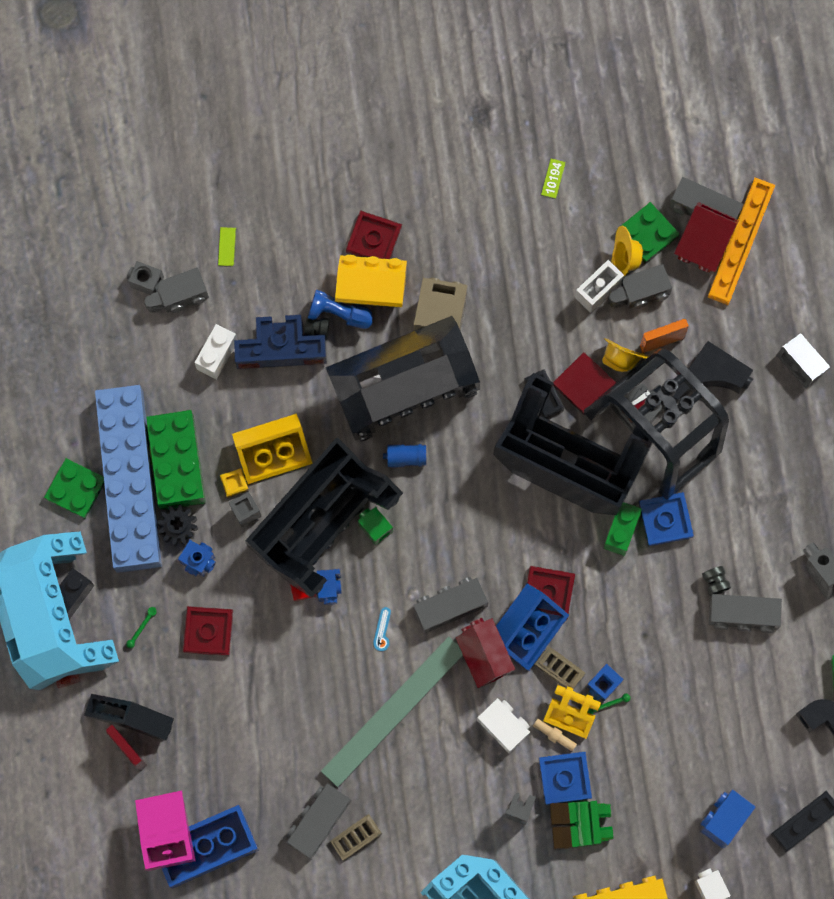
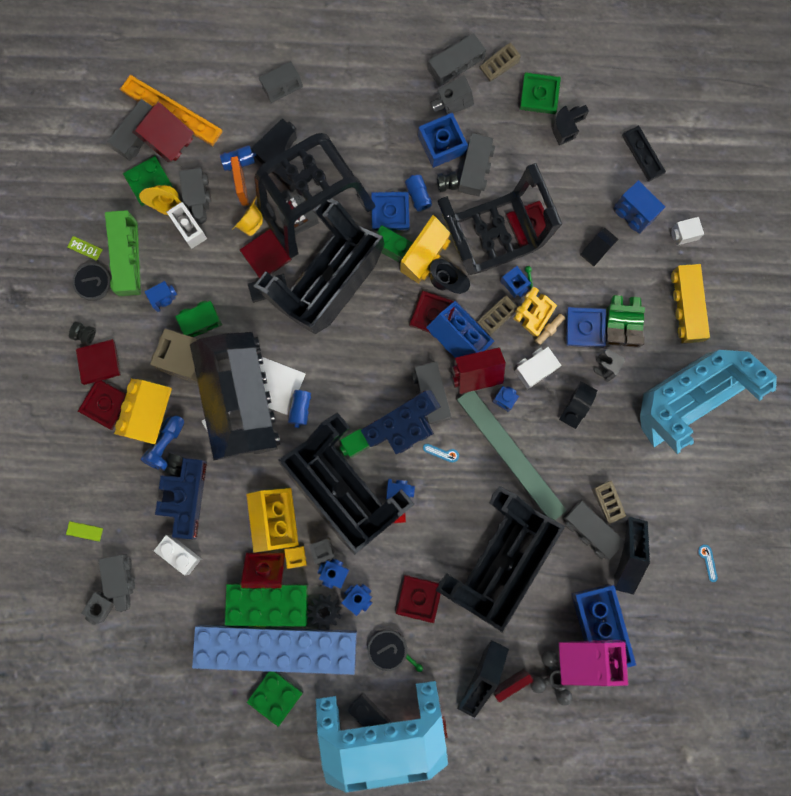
camera: 85 degrees left, 5 degrees up
(131, 782) = (539, 684): none -> dark grey piece
(145, 604) = (387, 650): none -> black tile
(213, 448) = (263, 570): none -> dark red tile
(221, 534) = (341, 573): none -> blue brick
(260, 721) = (507, 563): none -> black wedge
(296, 870) = (634, 557): none -> black arch
(405, 576) = (404, 424): none -> dark blue piece
(420, 221) = (98, 362): none -> dark red tile
(432, 426) = (281, 384): none -> white sticker
(450, 196) = (82, 333): none -> pearl dark grey wheel
(460, 693) = (506, 398): none -> blue brick
(467, 781) = (579, 405): none -> black brick
(490, 322) = (198, 319): none -> green brick
(510, 274) = (161, 295): none -> blue brick
(513, 194) = (91, 282): none -> black tile
(552, 223) = (123, 253): none -> bright green wedge
(595, 600) = (447, 277): none -> black piece
(622, 567) = (425, 250): none -> yellow slope
(672, 781) = (599, 246): none -> black slope
(674, 692) = (552, 221): none -> black windscreen
(684, 691) = (536, 216): none -> dark red tile
(697, 331) = (244, 154): none -> blue piece
(697, 547) = (418, 192): none -> blue piece
(766, 565) = (442, 140): none -> blue brick

